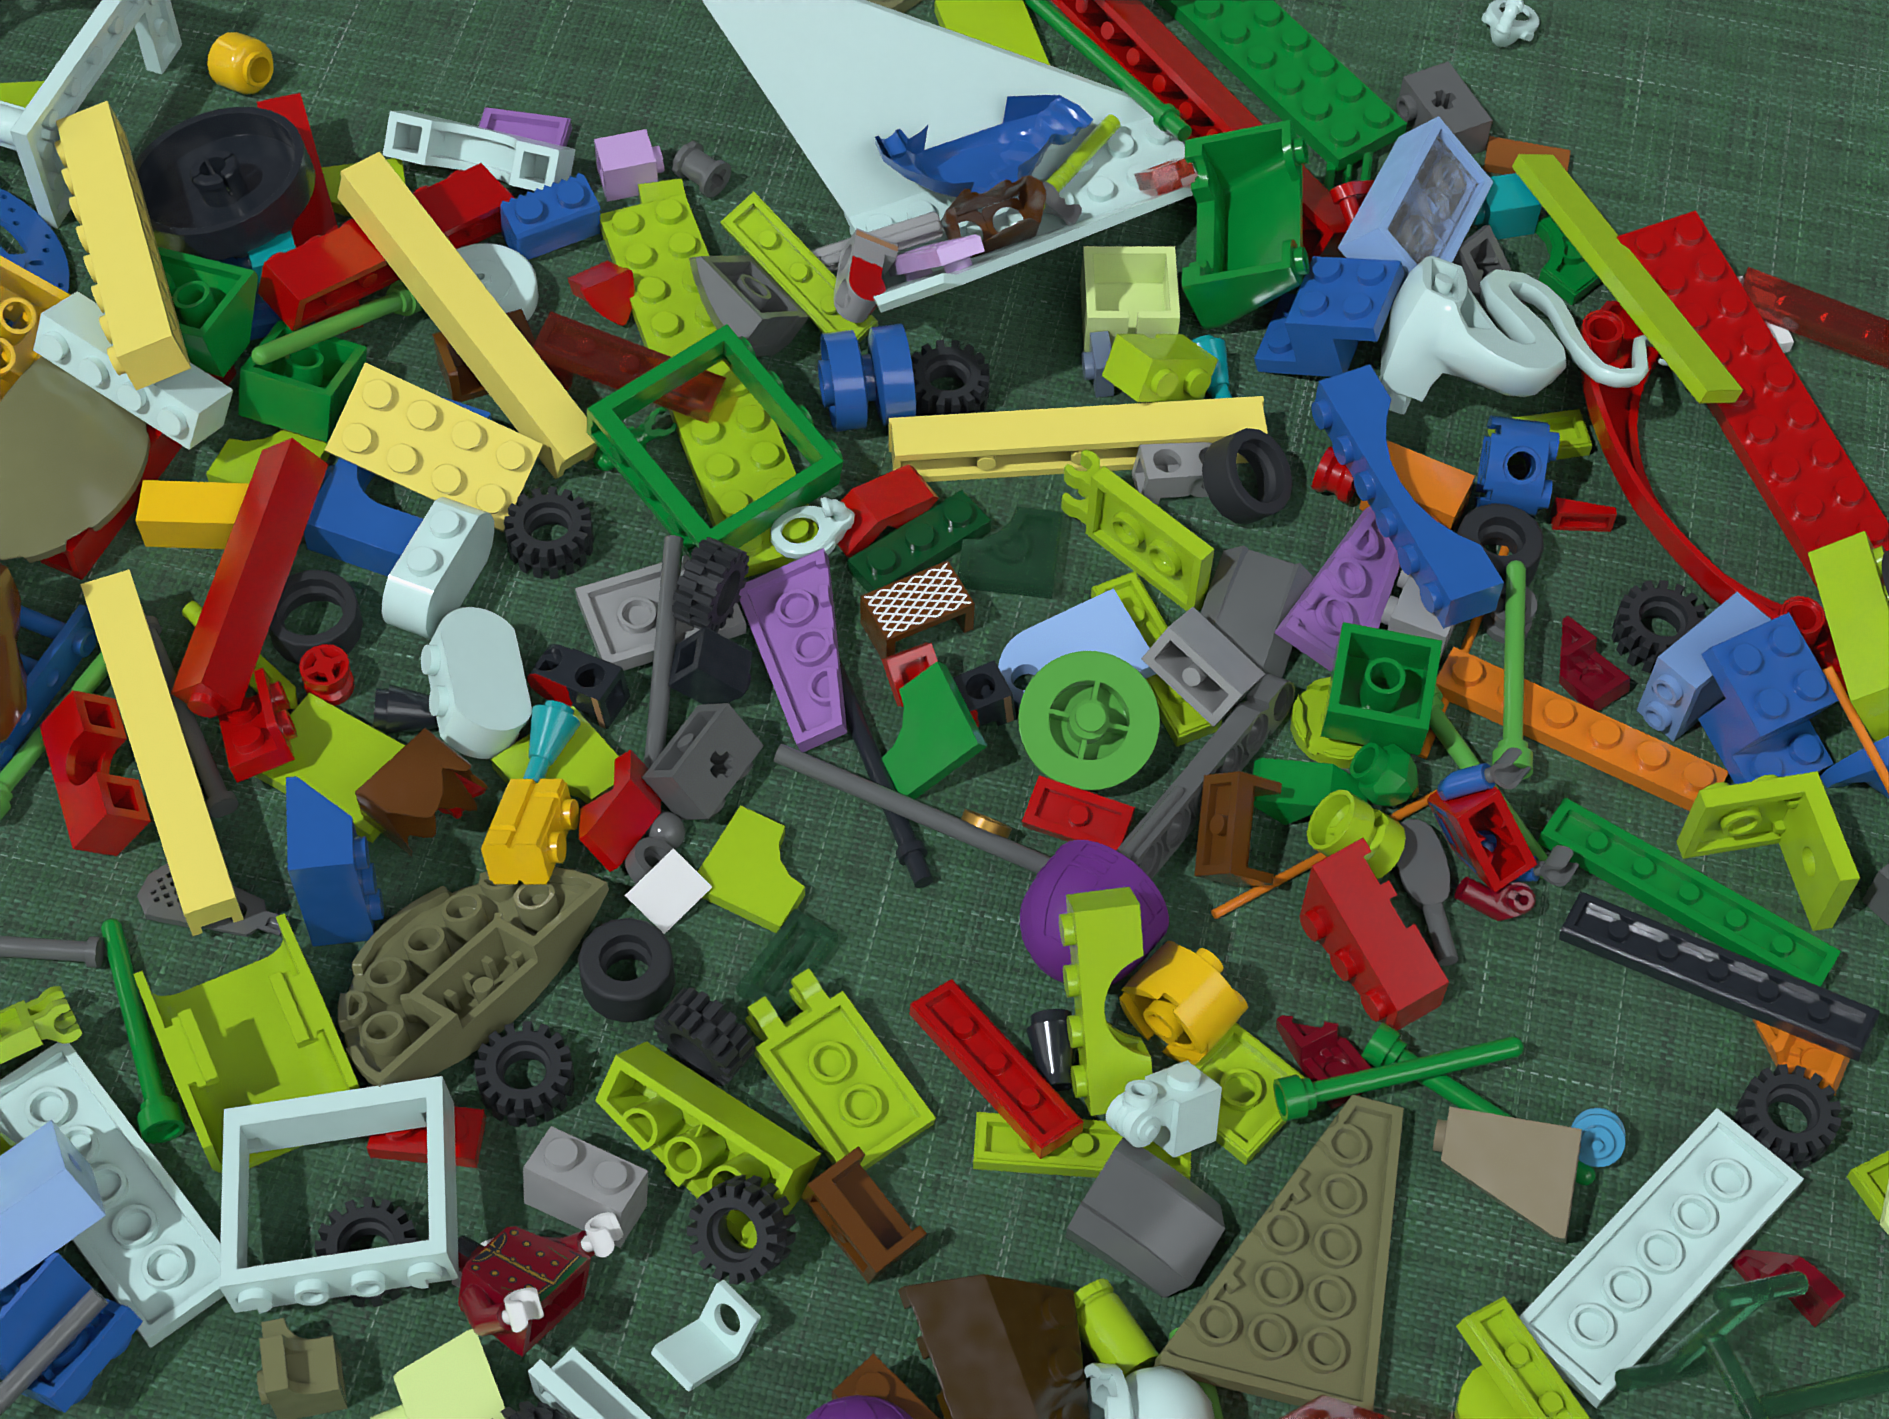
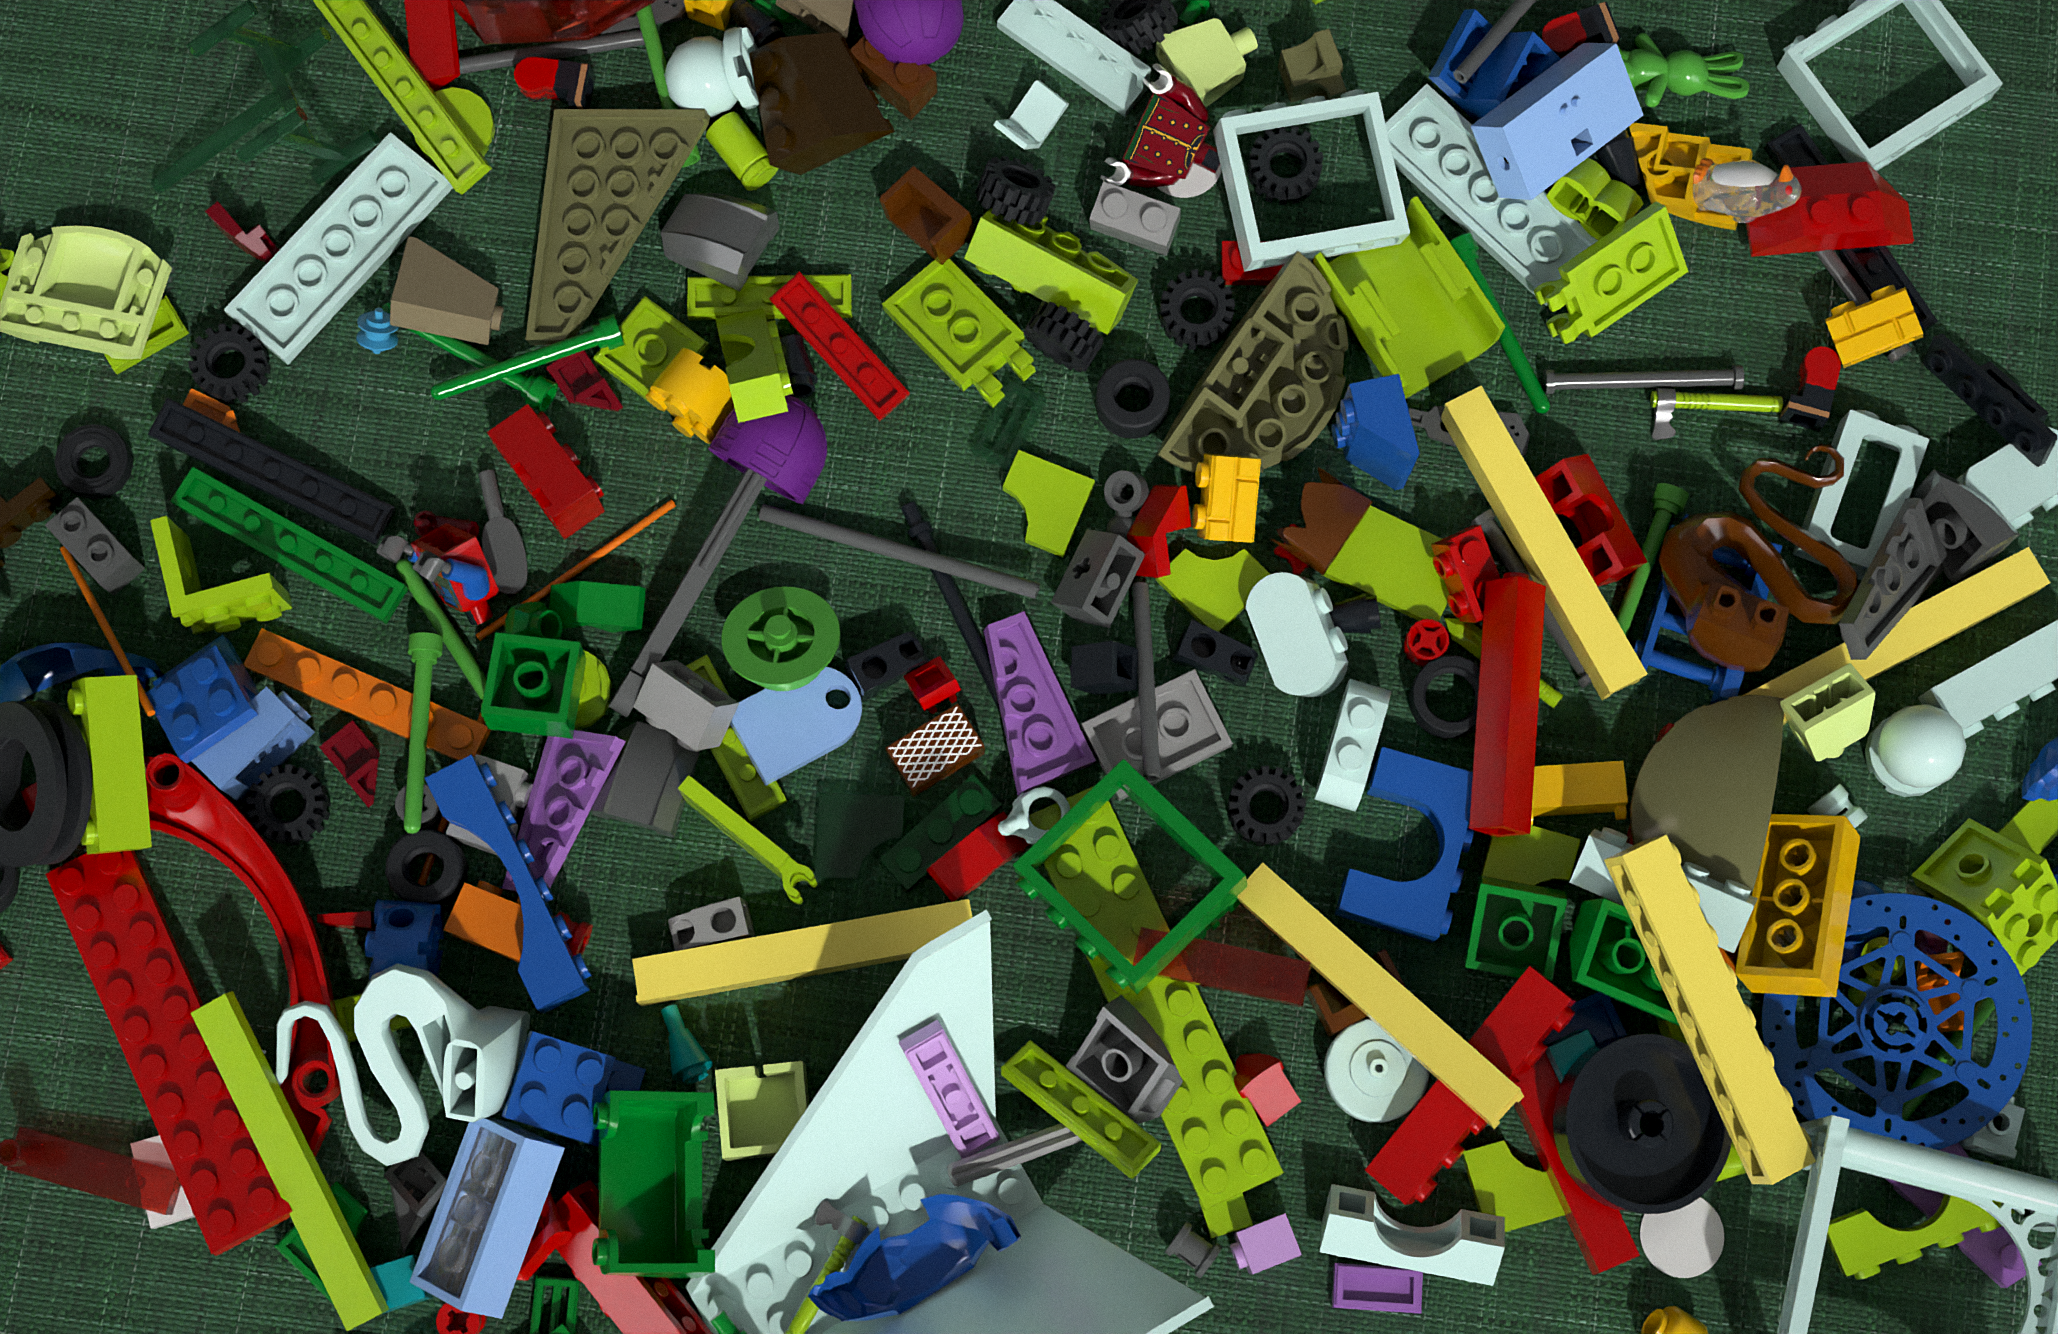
camera: 175 degrees right, 20 degrees up
(397, 300) = (1507, 967): bright green piece -> none
(432, 445) = (1380, 856): light yellow plate -> none
(550, 217) = (1328, 1159): blue brick -> none
(550, 732) = (1227, 593): teal cone -> none
(668, 891) = (1109, 466): white sticker -> none
(710, 585) = (1112, 725): black tyre -> none
(854, 379) = (1018, 980): blue wheel -> none
(860, 274) = (1019, 1094): light grey leg -> none
(934, 734) = (910, 620): green tile -> none
(986, 823) = (861, 554): pearl gold piece -> none
(1030, 205) = (880, 1172): reddish brown piece -> none
(1076, 814) = (785, 565): red plate -> none
(1095, 361) = (790, 1040): sand blue plate -> none
(1159, 367) = (737, 1017): lime brick -> none
(1164, 176) = (736, 1269): clear red plate -> none
(1169, 1107) = (704, 301): light aqua brick -> none
(1225, 487) = (670, 919): black tyre -> none
(1227, 827) = (663, 548): reddish brown panel -> none
(1347, 818) = (557, 556): lime wheel -> none

